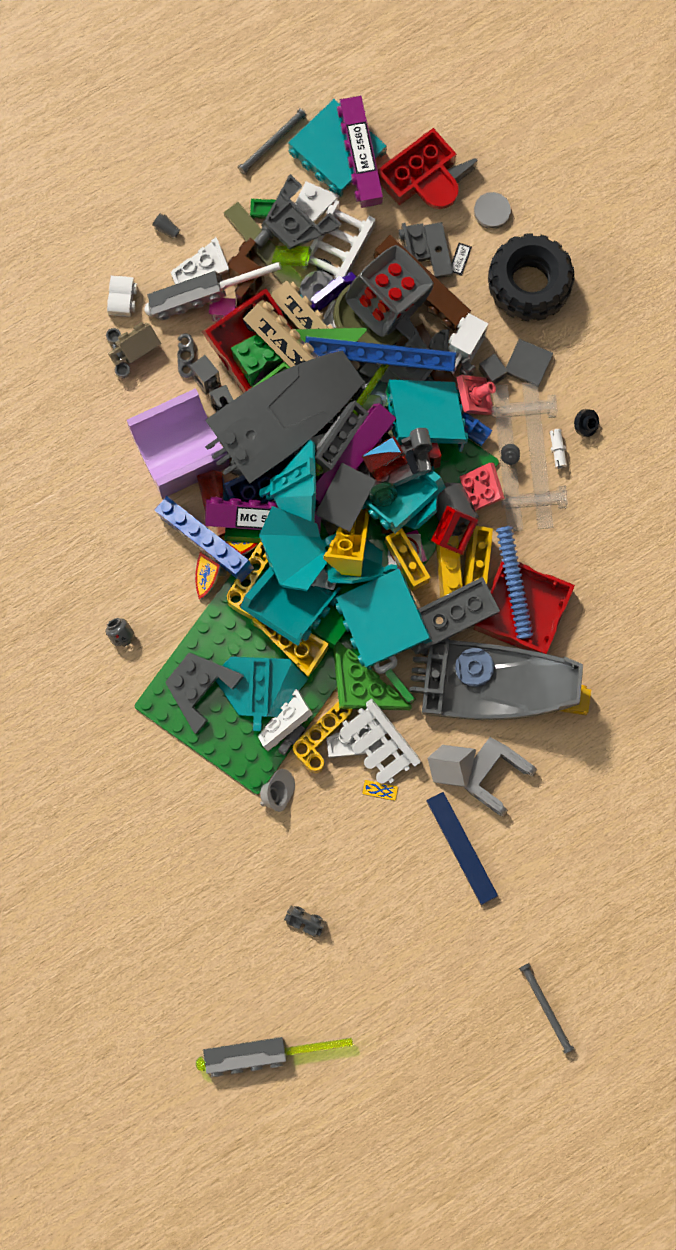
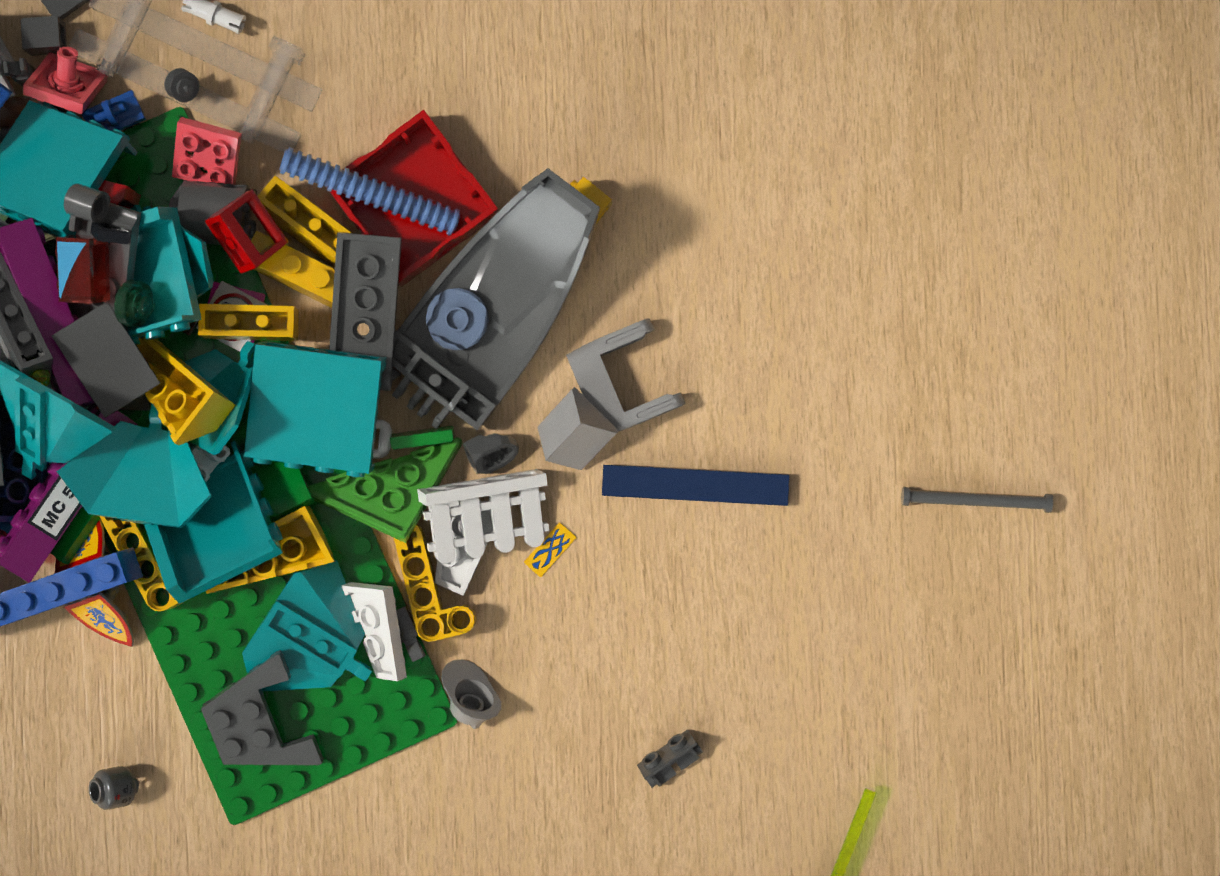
camera: 60 degrees left, 10 degrees up
(414, 726) = (490, 452): none -> dark grey rock

